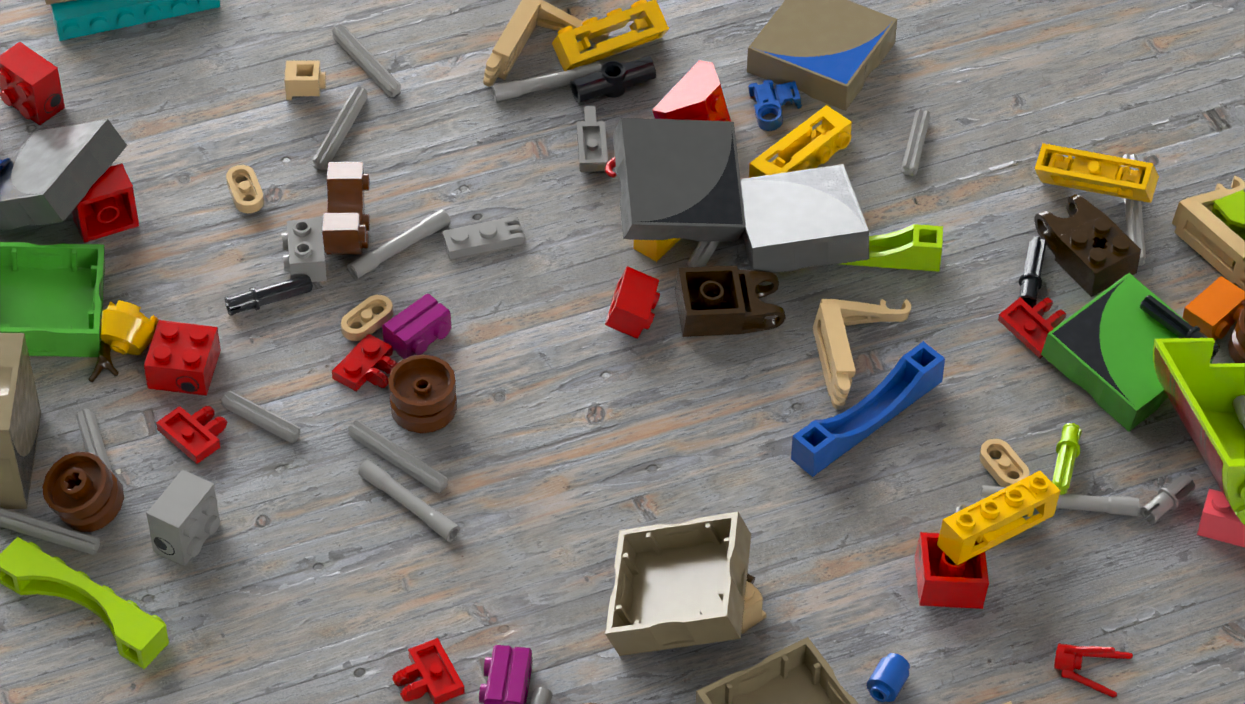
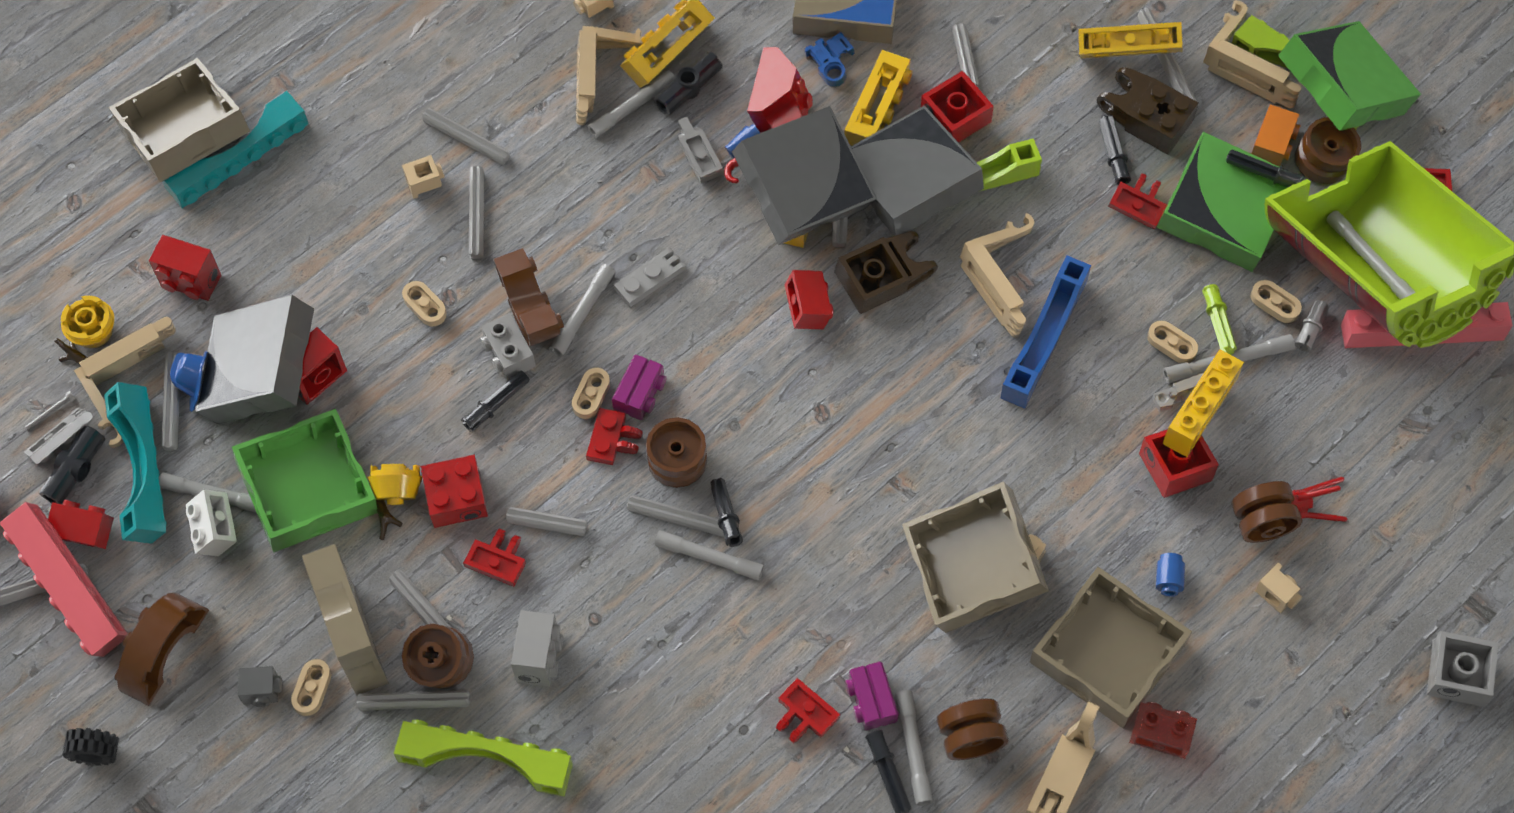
camera: 20 degrees left, 15 degrees up
(442, 469) = (727, 519): none -> black axle
(880, 180) = (959, 106): none -> red brick
(1021, 648) = (1266, 511): none -> reddish brown wheel
(1143, 467) = (1277, 301): none -> tan plate

